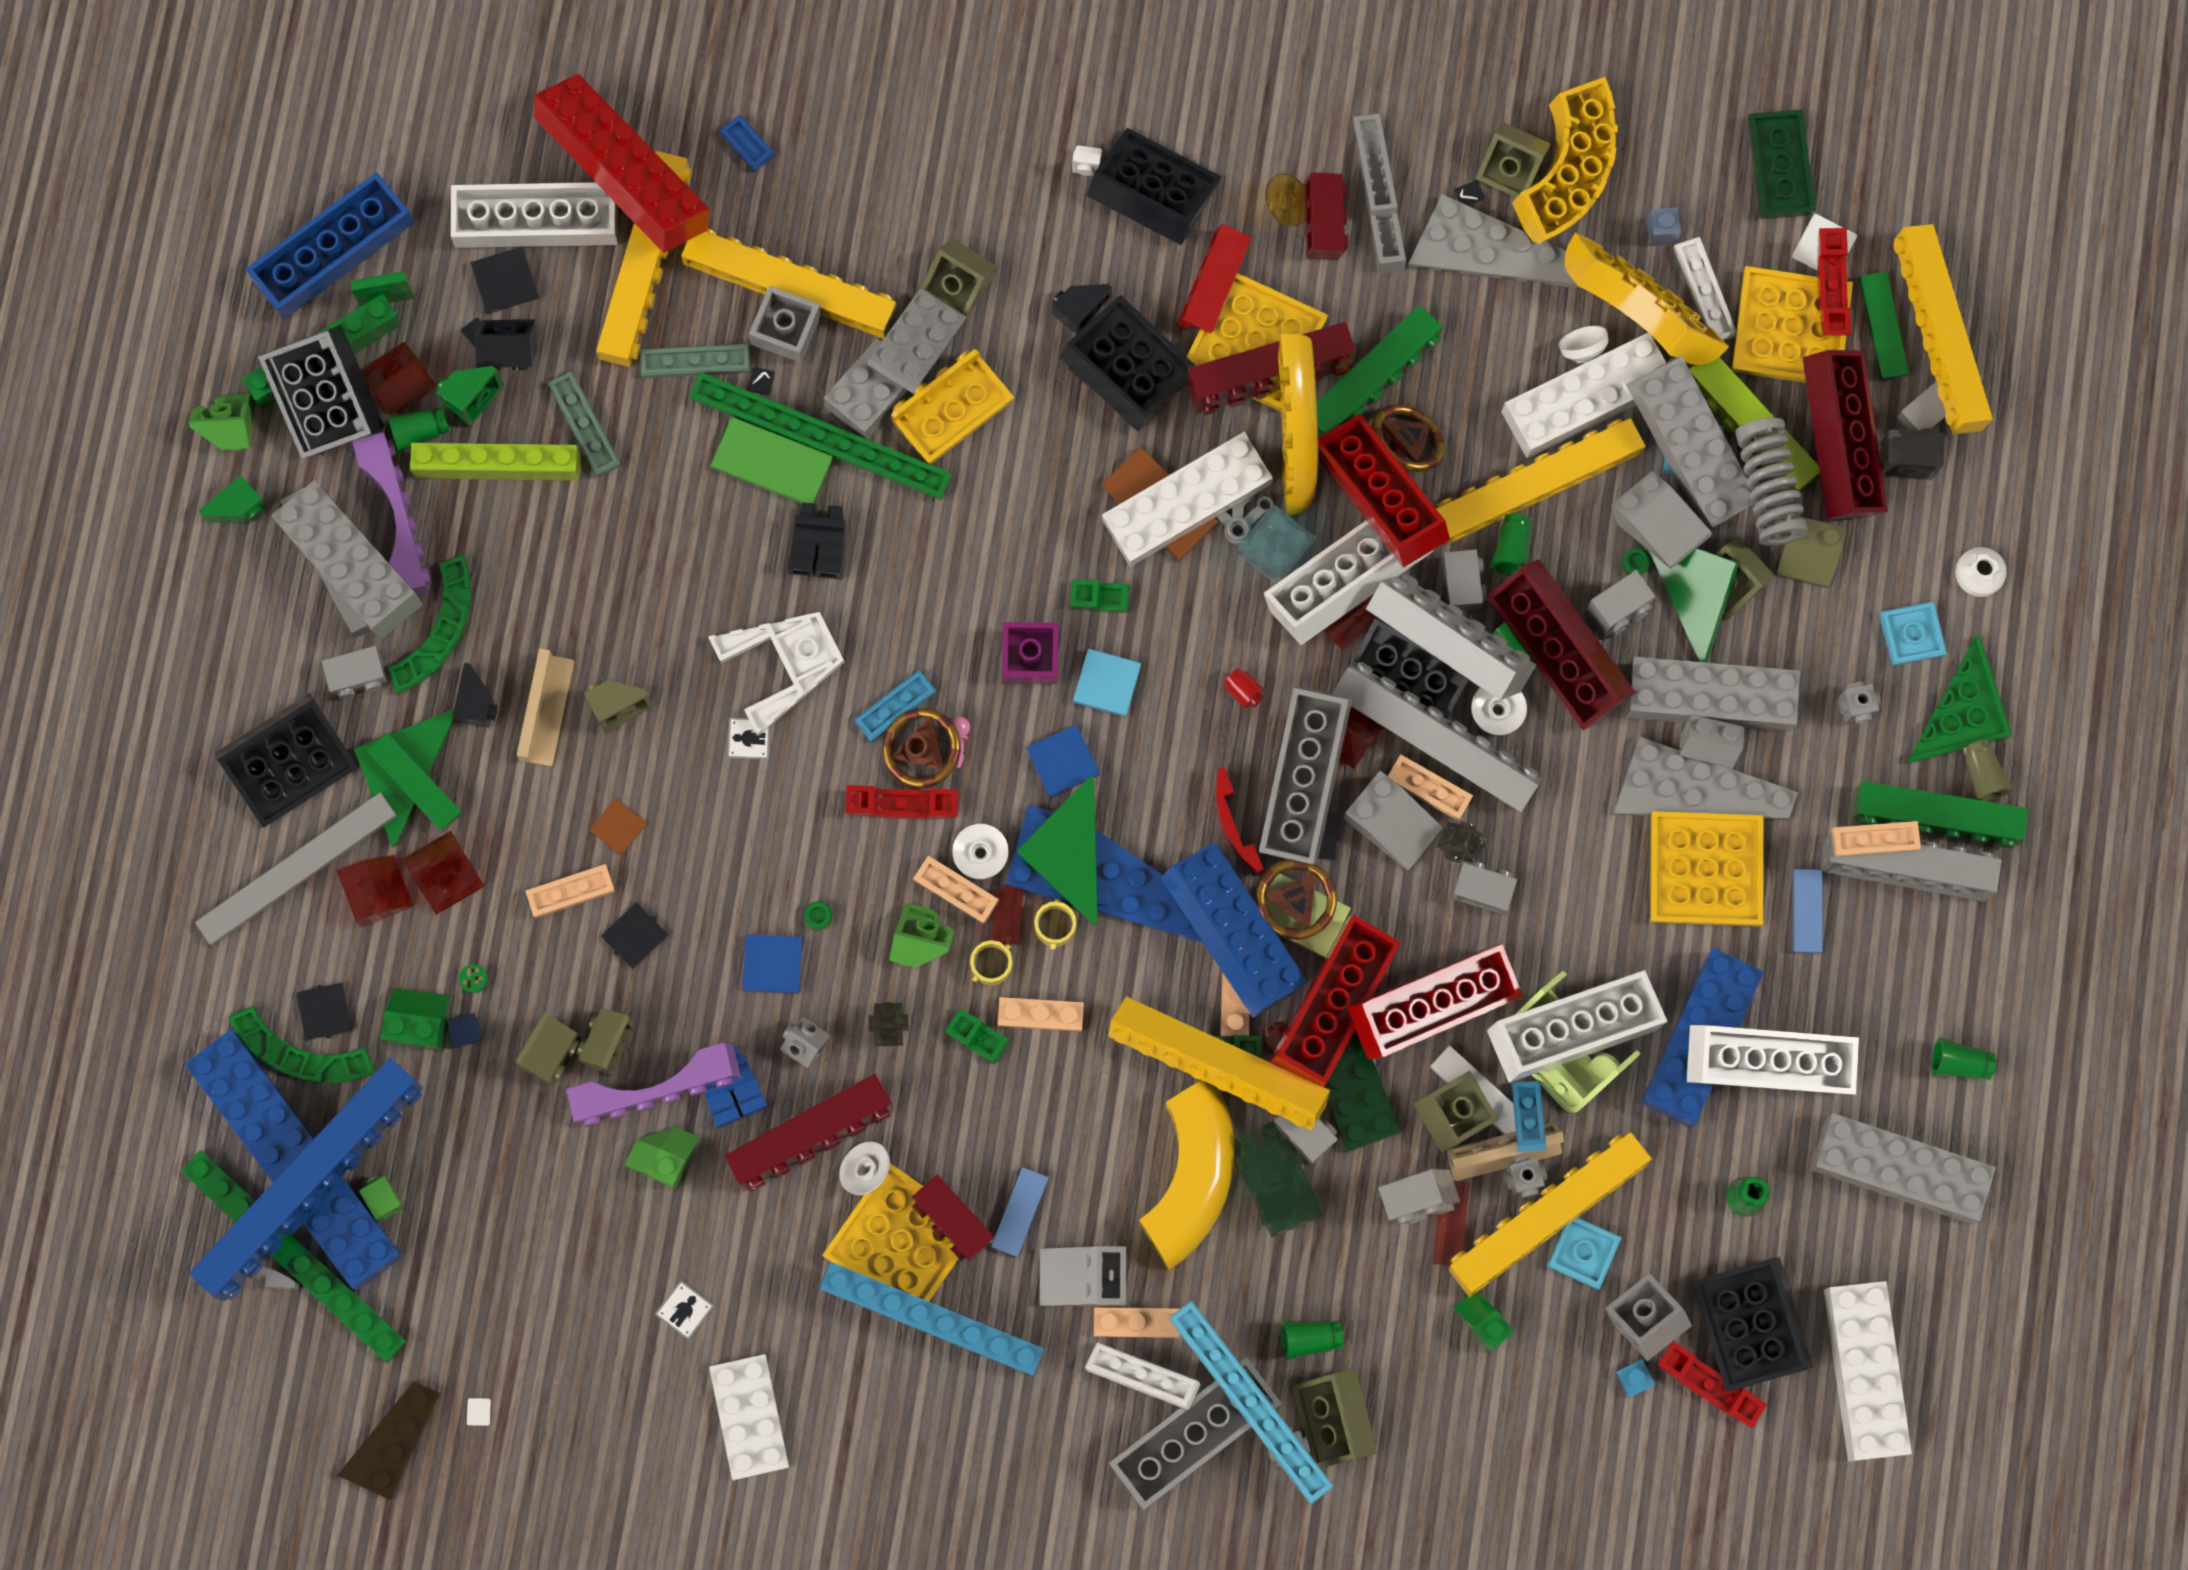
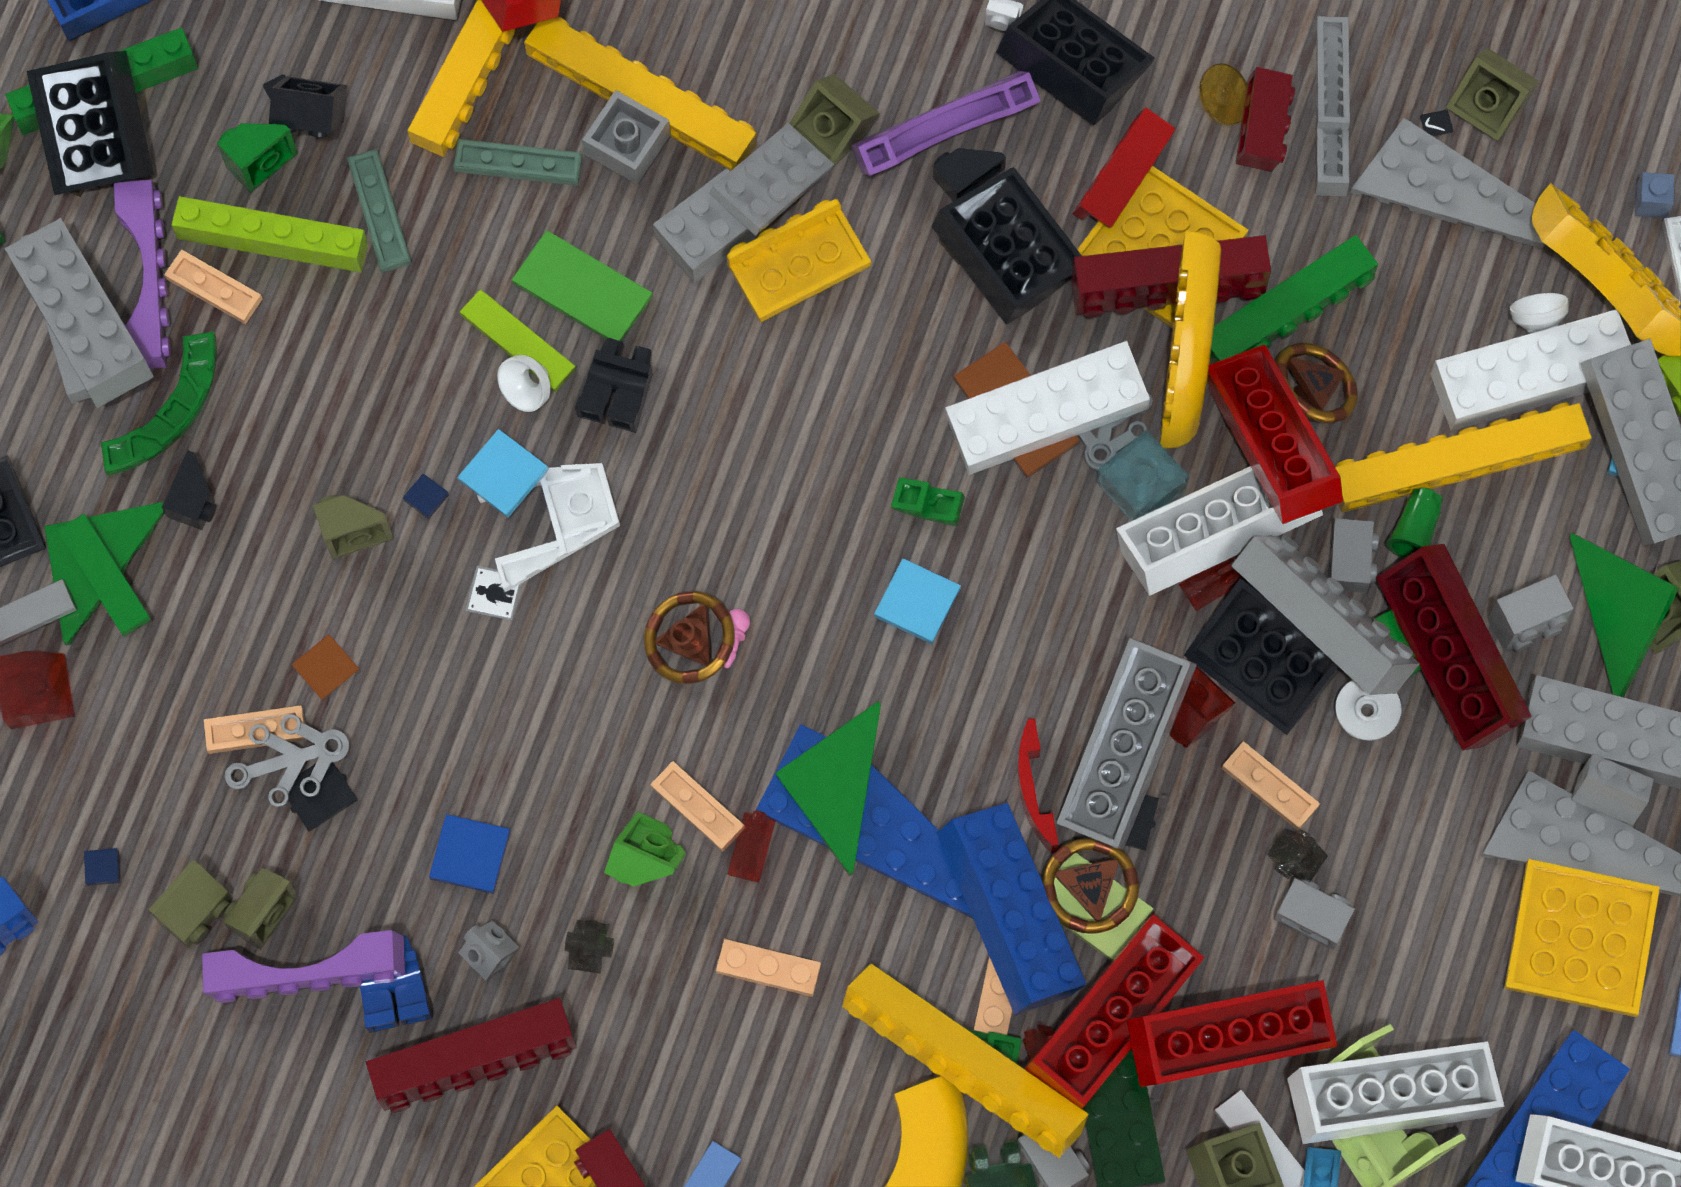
camera: 15 degrees right, 5 degrees down
(355, 672) = (63, 441): light grey brick -> none
(393, 285) = (194, 19): green tile -> none
(397, 378) = (180, 125): clear red slope -> none
(415, 1019) = (48, 844): green slope -> none
(417, 427) = (190, 181): green plant -> none
(443, 872) = (115, 683): clear red slope -> none
(455, 515) = (213, 286): none -> light nougat plate
(473, 979) = (124, 810): green tile -> none
(504, 280) = (322, 38): black tile -> none
(545, 709) = (269, 519): tan panel -> none
(607, 909) = (292, 758): none -> light grey plant
(663, 1155) = (300, 1052): bright green slope -> none
(674, 665) = (425, 496): none -> dark blue tile
(725, 517) = (515, 337): none -> lime tile
(735, 558) = (517, 385): none -> white piece
(737, 635) = (503, 473): none -> medium azure tile
(761, 381) = (588, 196): black sticker -> none
(818, 915) = (533, 808): green tile -> none
(820, 436) = (643, 268): green plate -> none
(864, 1168) = (528, 1108): white dish -> none
(901, 803) = (653, 696): red slope -> none
(903, 698) = (686, 575): dark azure tile -> none
(977, 1036) = (690, 979): green slope -> none
(980, 837) = (734, 751): white dish -> none
(991, 944) = (722, 876): light yellow piece -> none
(1022, 286) = (945, 121): none -> medium lavender arch
(1030, 653) = (834, 550): magenta brick -> none
(1057, 942) = (809, 845): light yellow piece -> none
(1062, 761) = (849, 681): blue tile -> none
(1244, 688) = (1074, 634): red brick -> none
(1392, 821) = (1220, 816): light grey slope -> none
(1438, 736) = (1291, 728): light grey brick -> none
(1580, 162) = (1571, 108): yellow brick -> none
(1637, 560) = (1559, 565): green tile -> none
(1660, 520) = (1594, 524): light grey slope -> none

